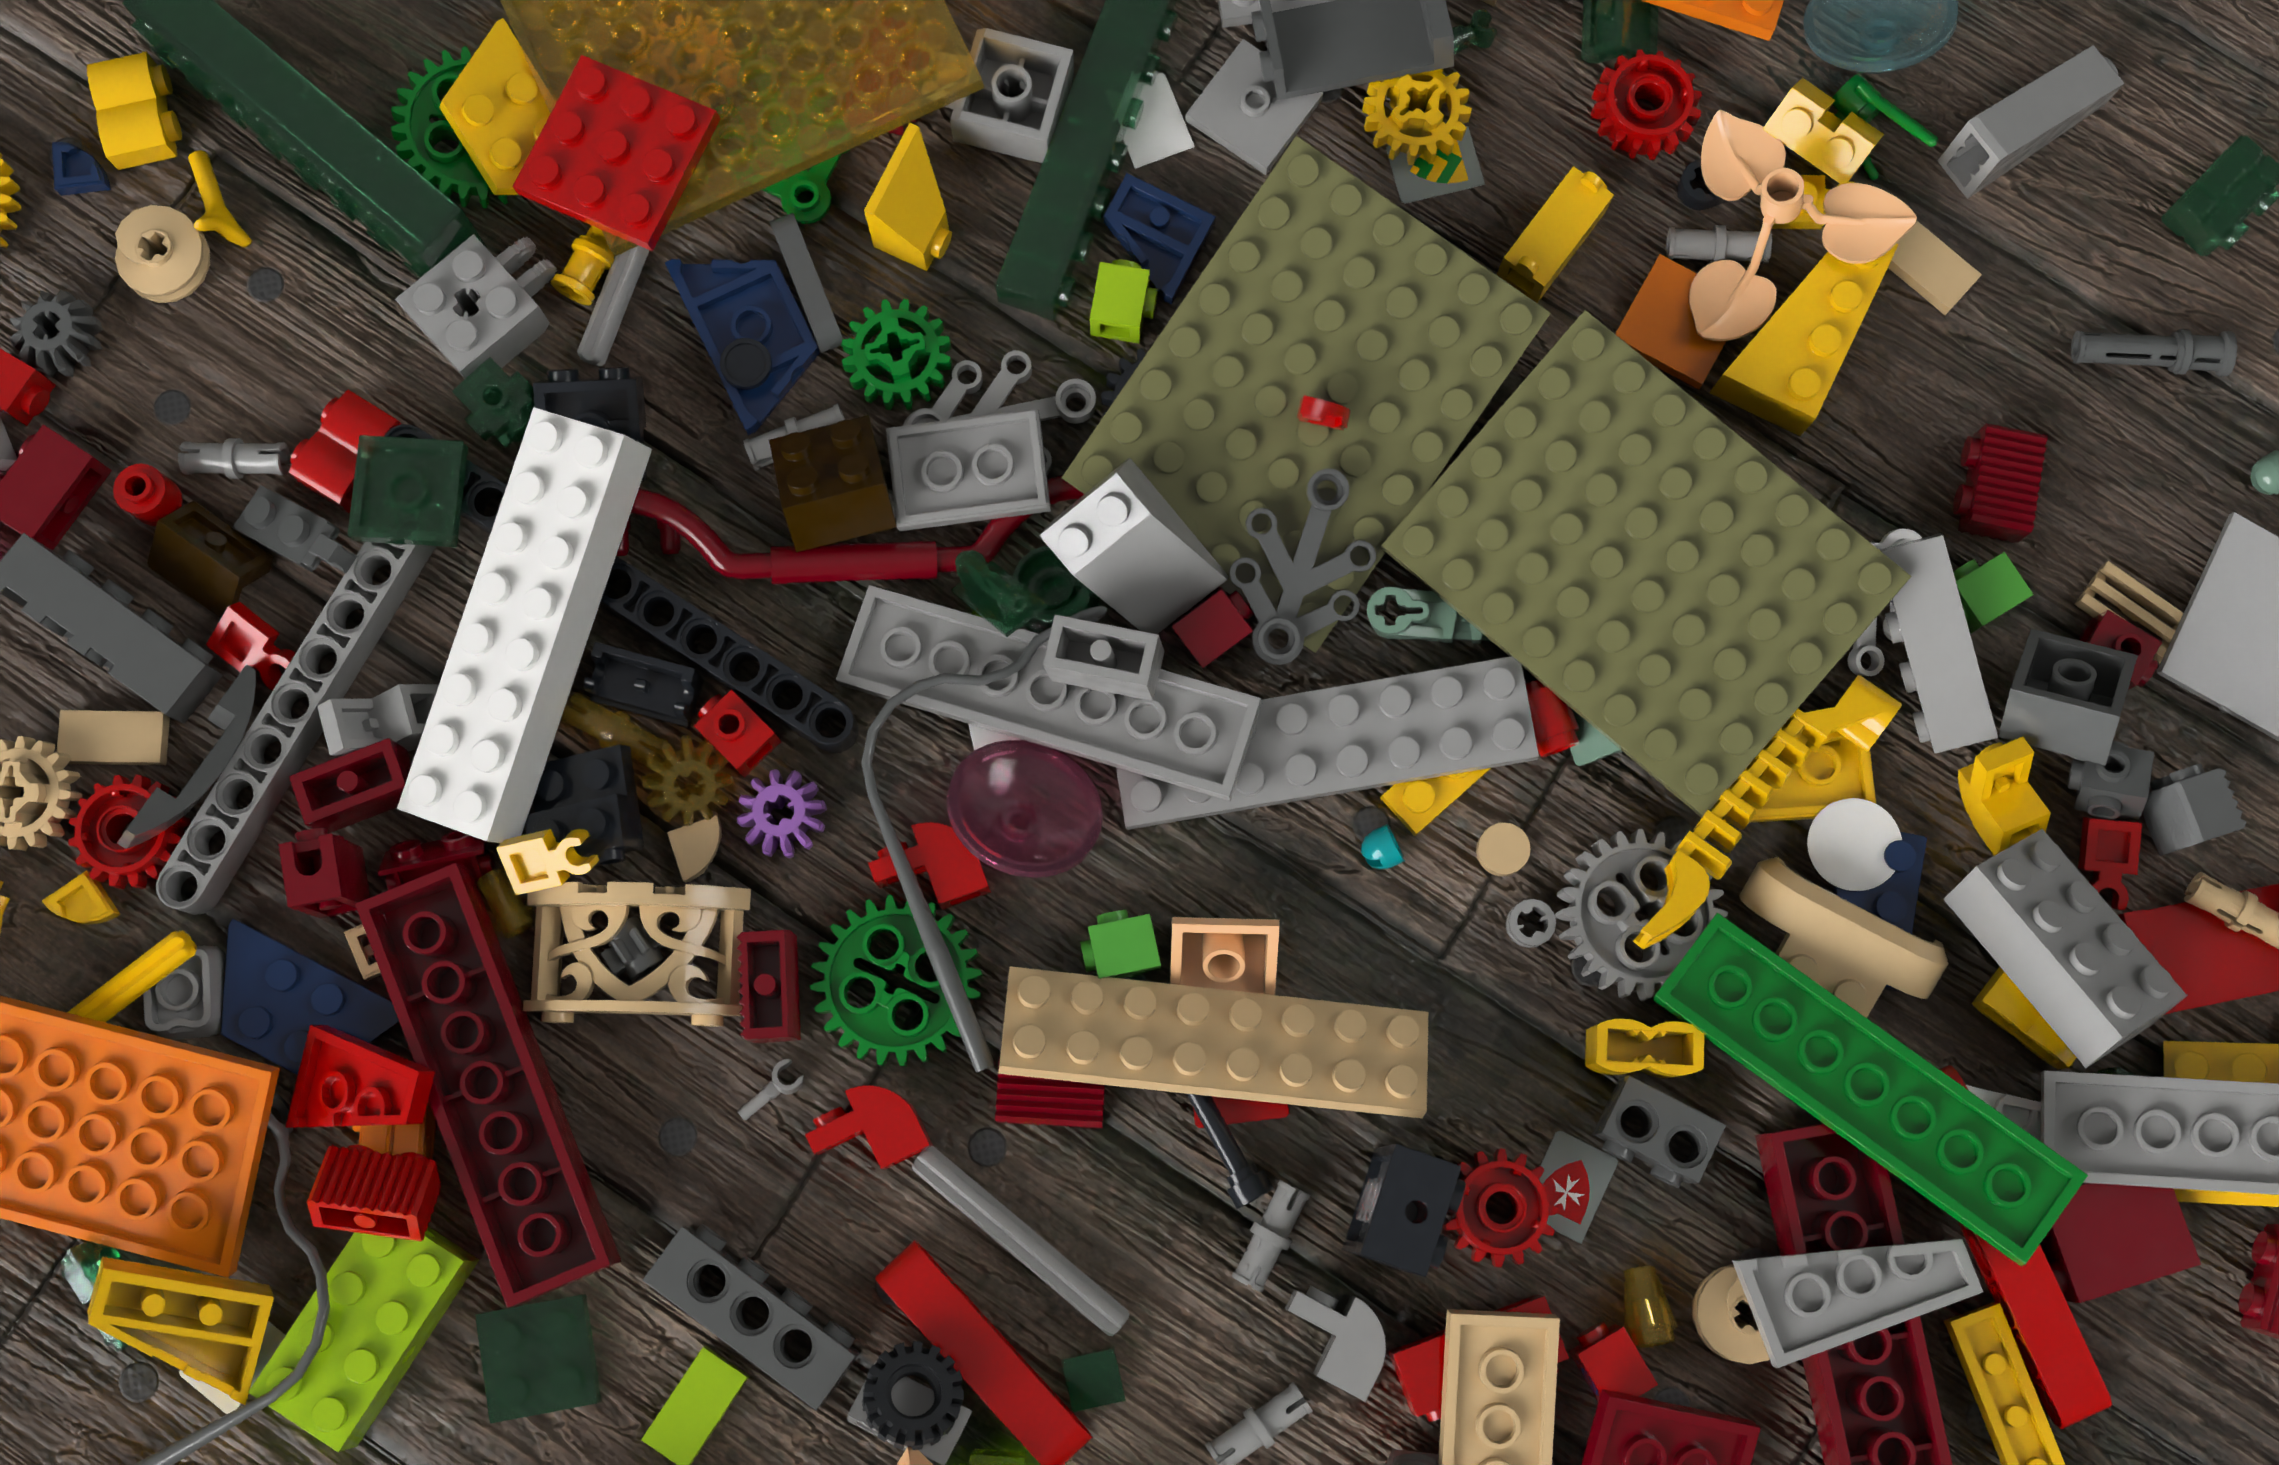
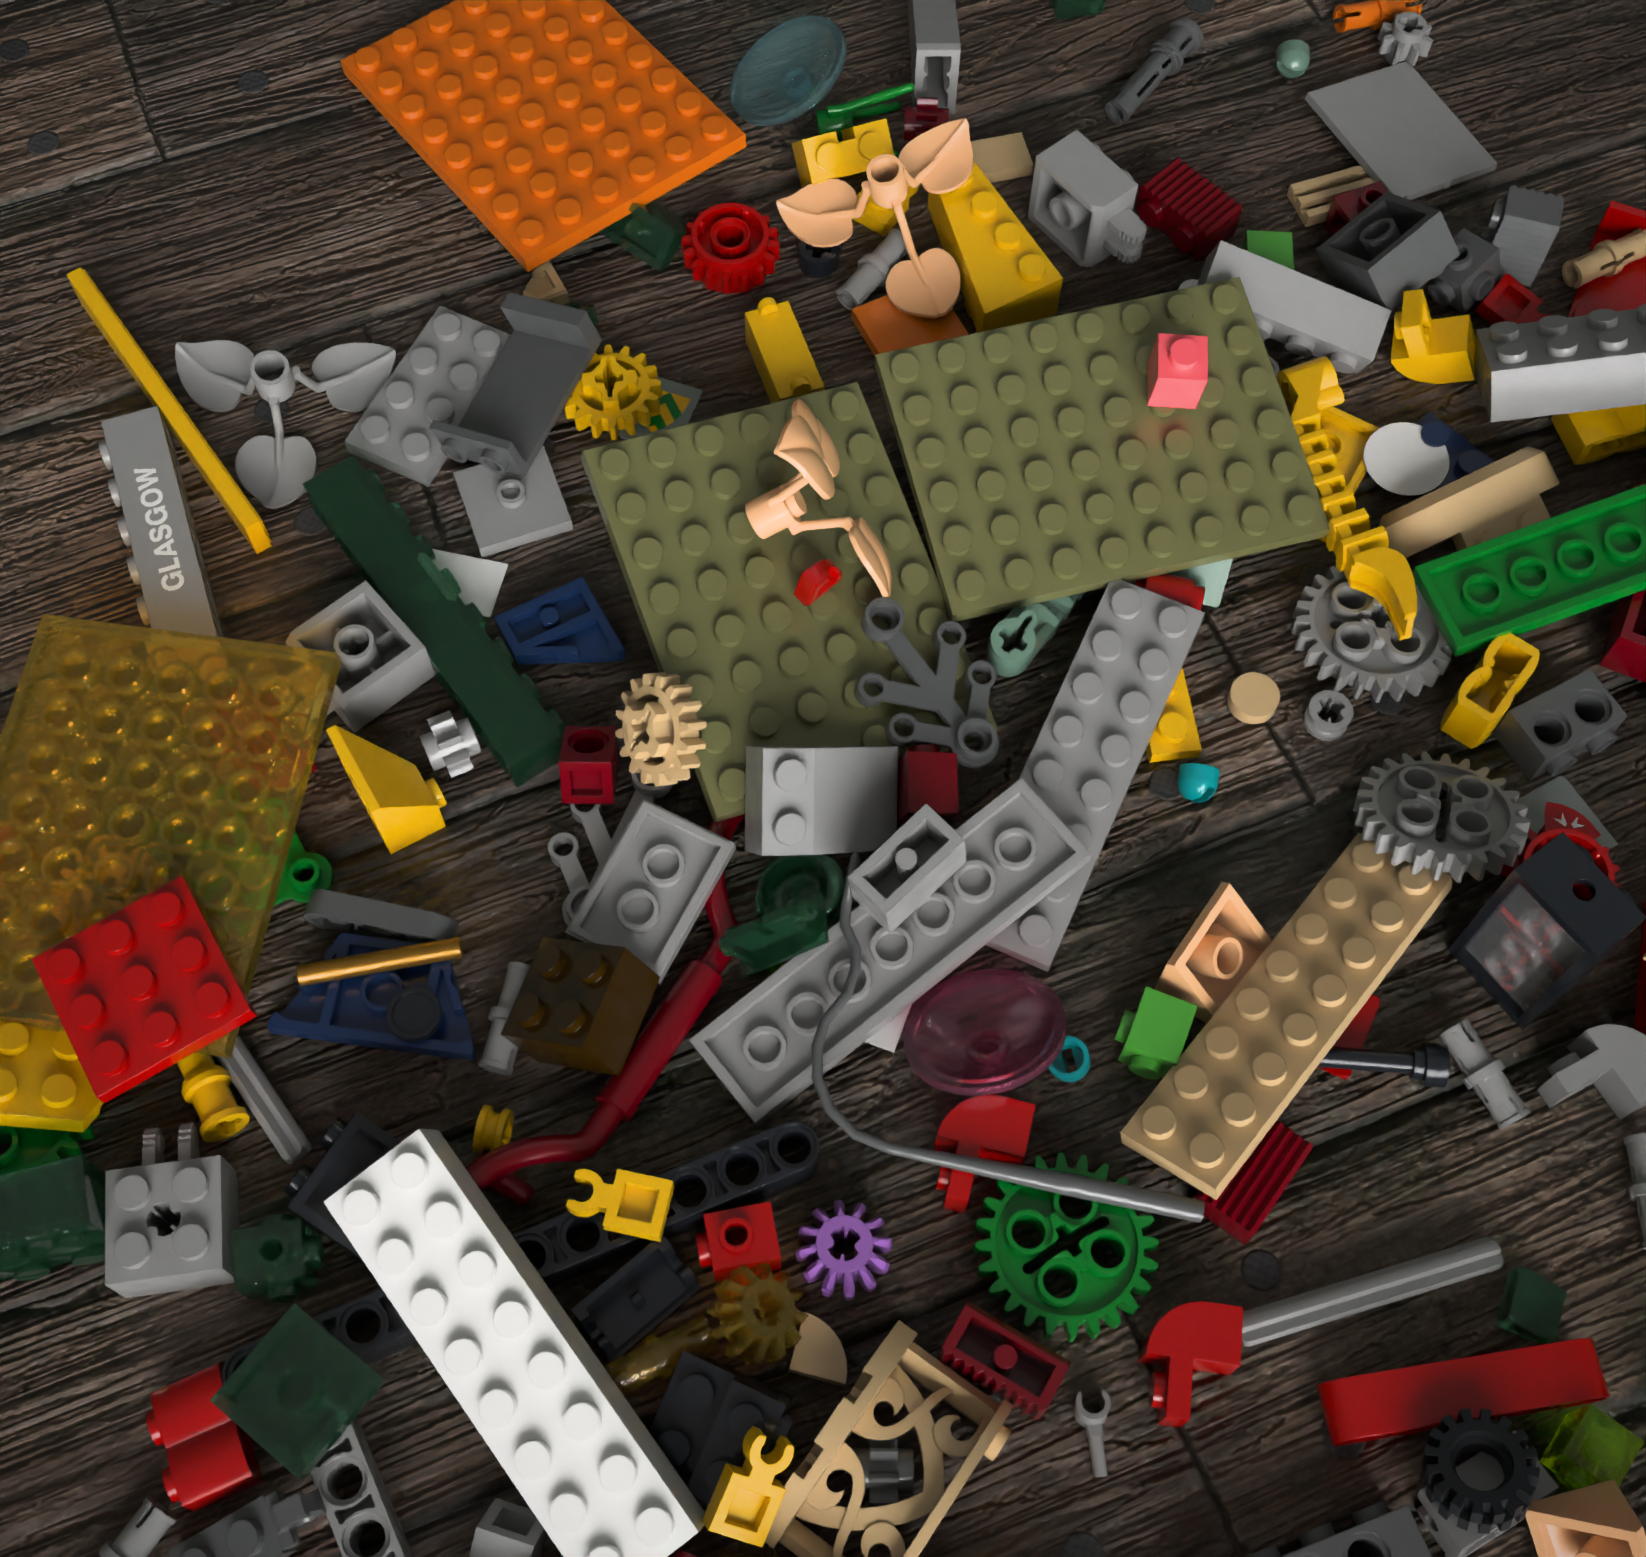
camera: 55 degrees left, 15 degrees down
(698, 629) = (632, 1205): none -> yellow plate
(699, 489) = (492, 1129): none -> yellow bush
(769, 307) = (379, 961): none -> pearl gold bar
(876, 357) = (510, 908): green gear -> none
(989, 223) = (450, 744): none -> light grey gear
(1045, 344) = (588, 765): none -> dark red brick
(1046, 887) = (1081, 1057): none -> teal hinge
(1099, 379) = (660, 729): none -> tan gear
(1122, 301) = (593, 686): lime brick -> none
(1365, 330) = (813, 453): none -> light nougat plant
(1502, 1117) = (1479, 820): none -> light grey gear
(1746, 581) = (1177, 371): none -> coral brick
(1921, 181) = (923, 117): none -> dark red gear
(1926, 385) = (1085, 202): none -> light grey hinge

